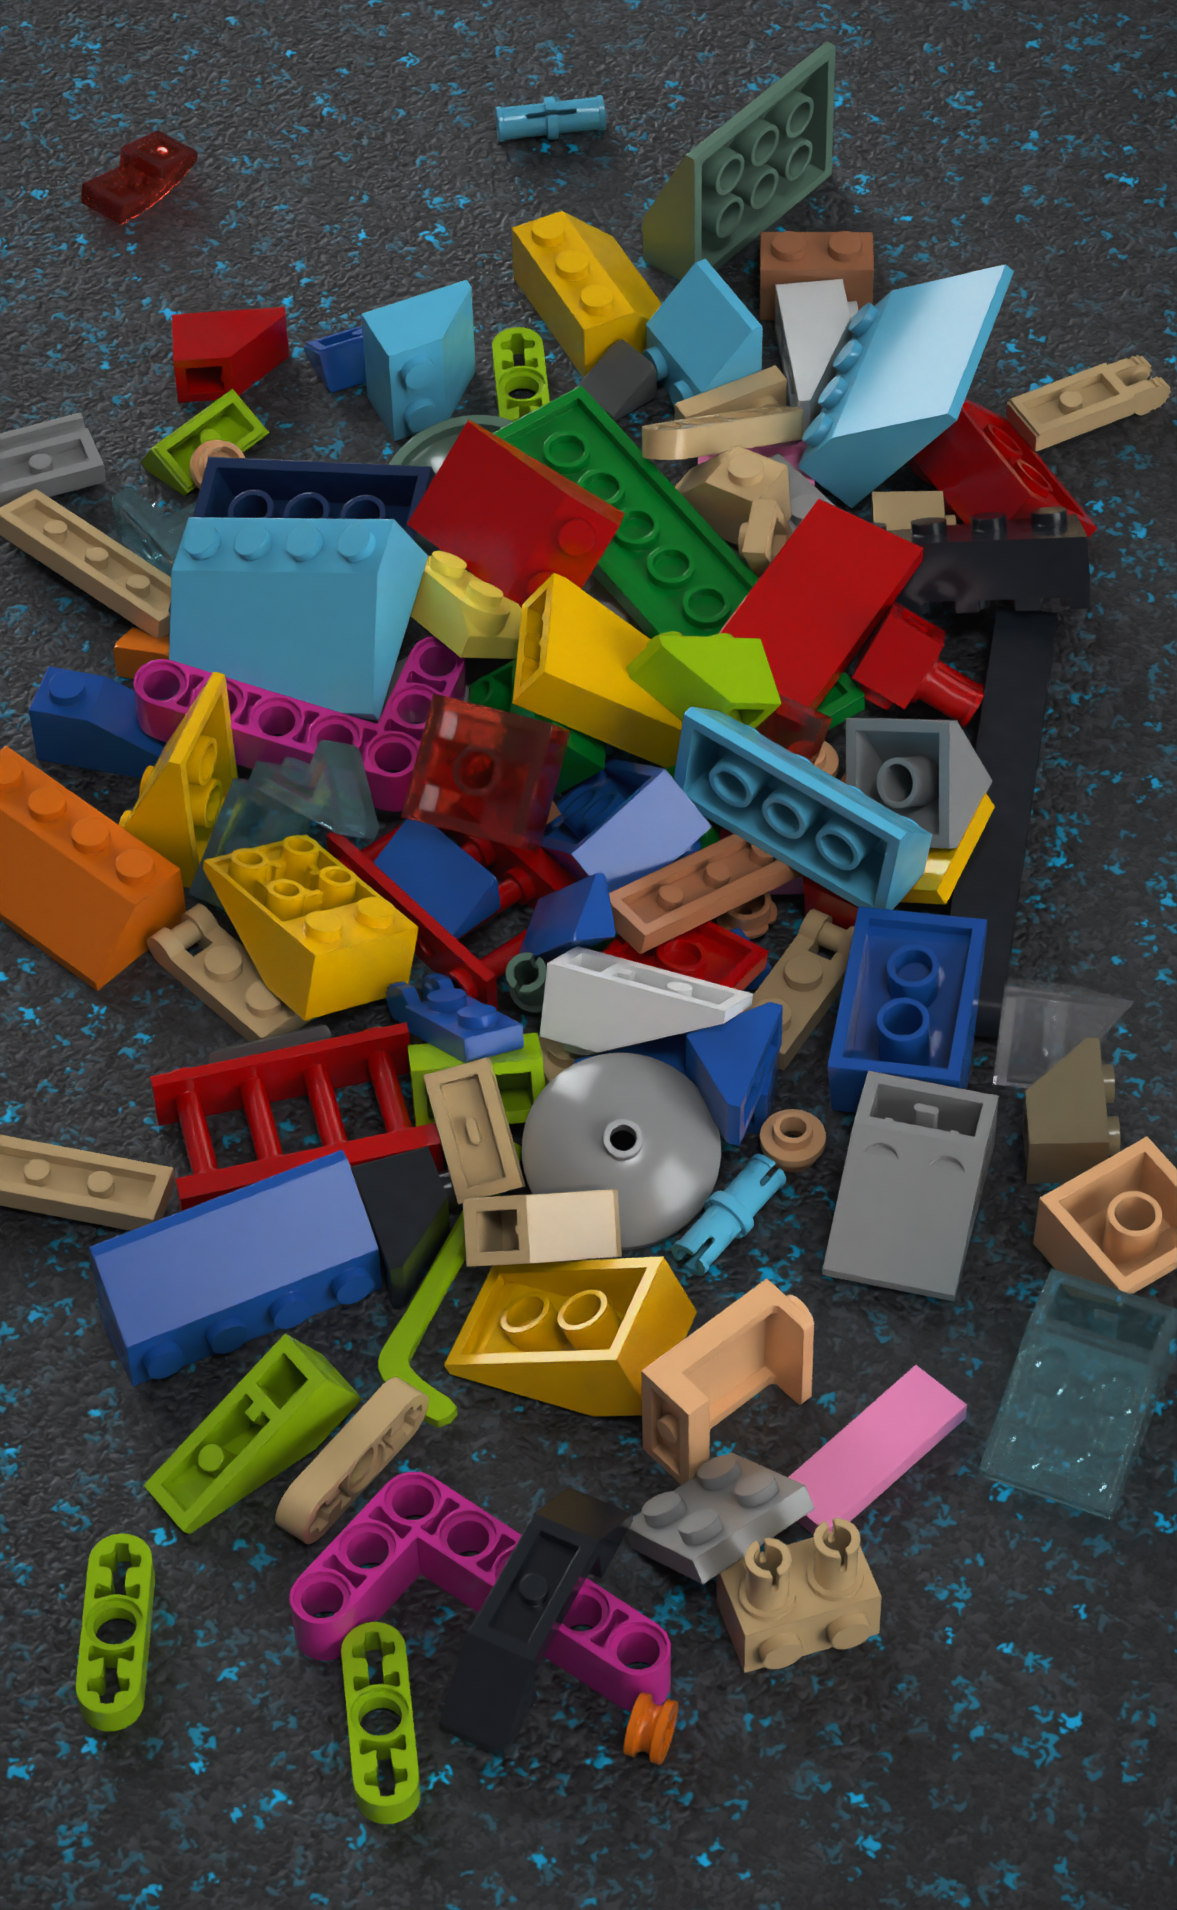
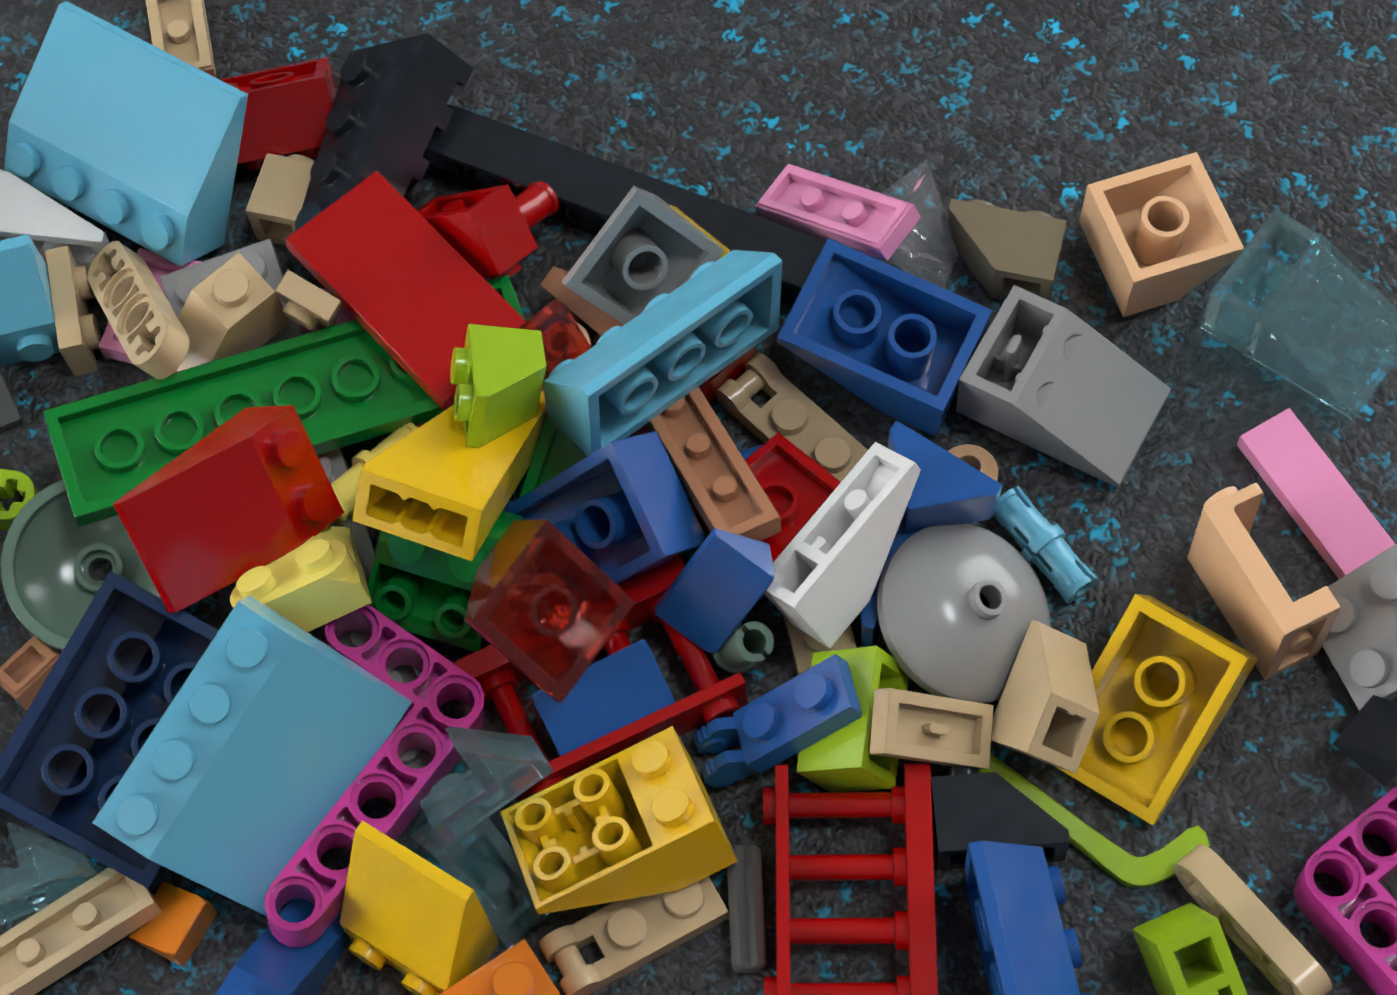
camera: 70 degrees left, 15 degrees up
(1050, 950) = (838, 211): none -> bright pink tile

